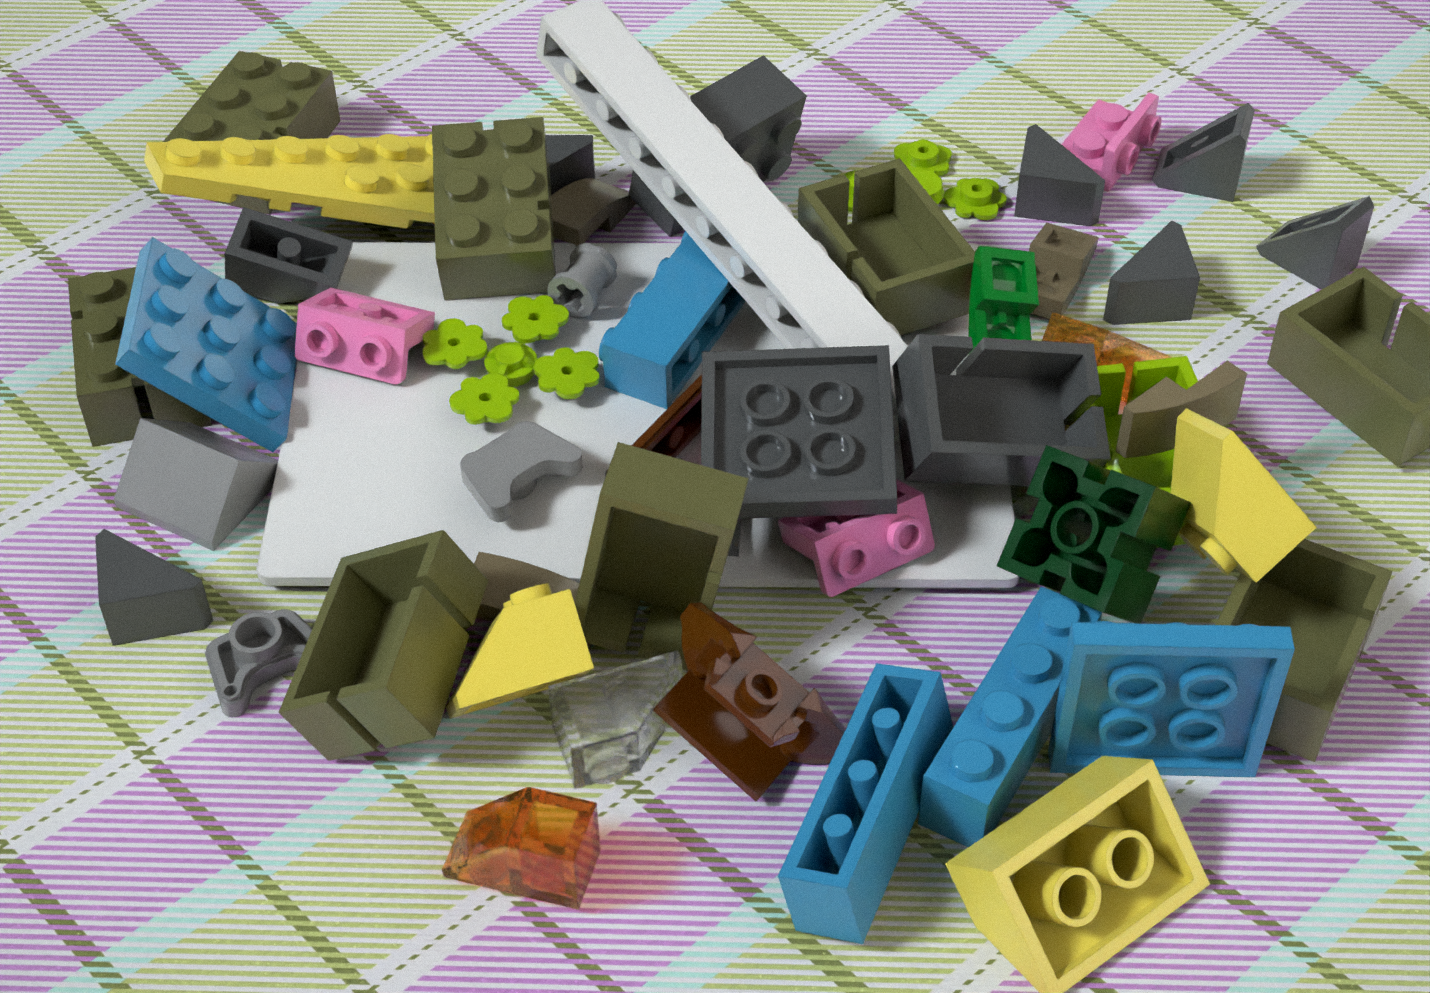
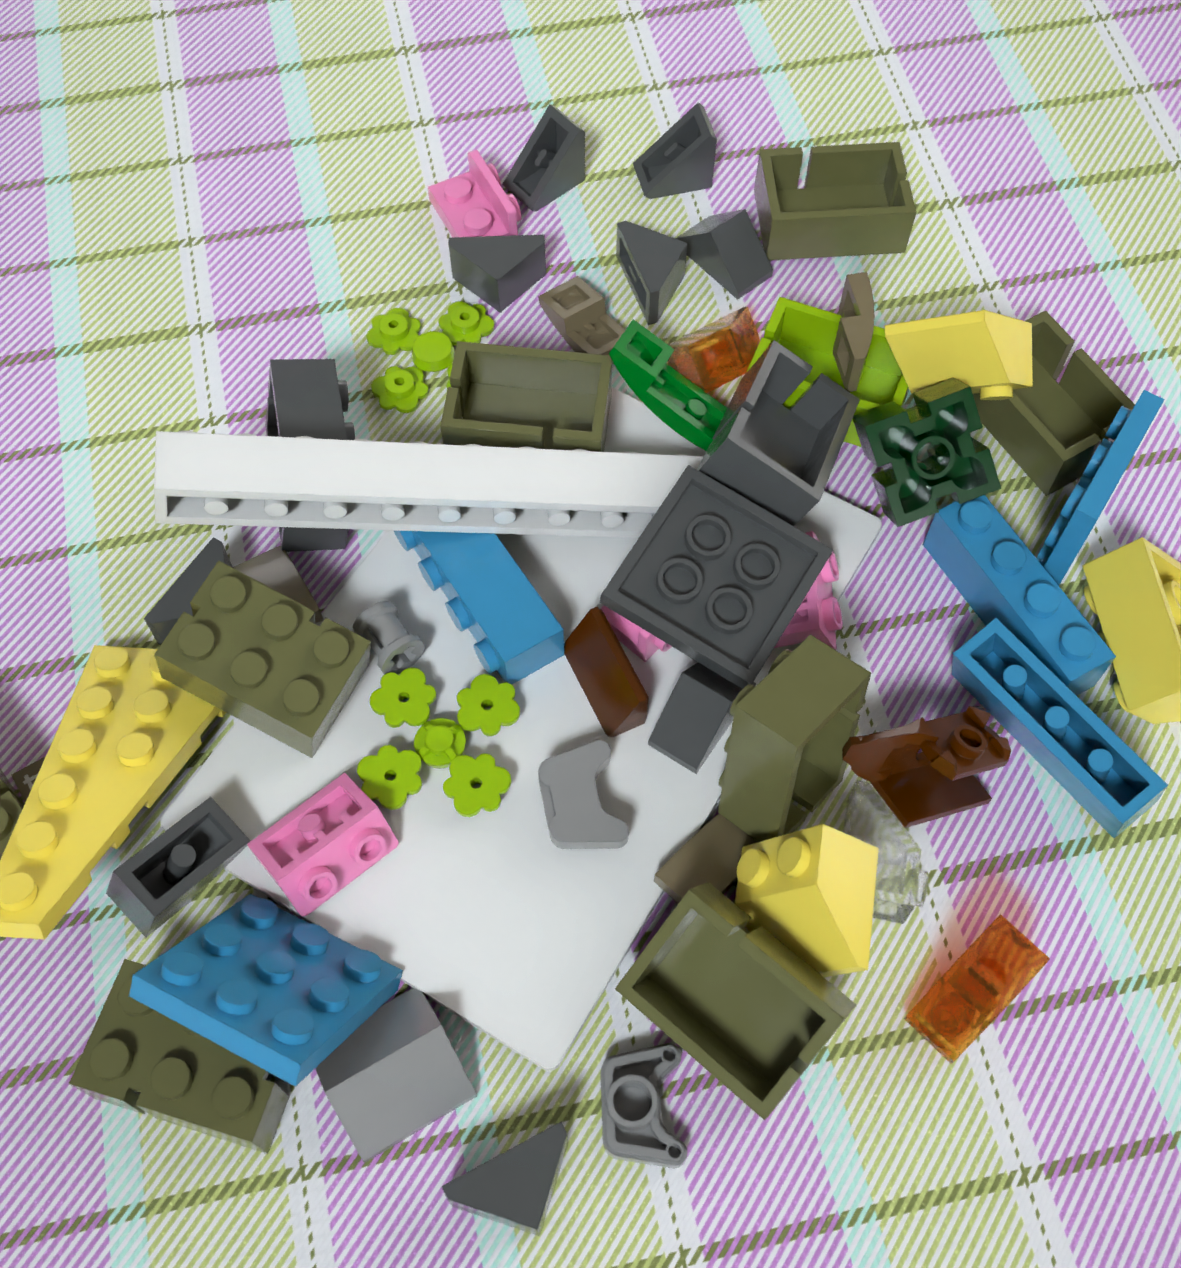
camera: 60 degrees left, 15 degrees up
(1242, 329) = (729, 251): none -> dark grey slope

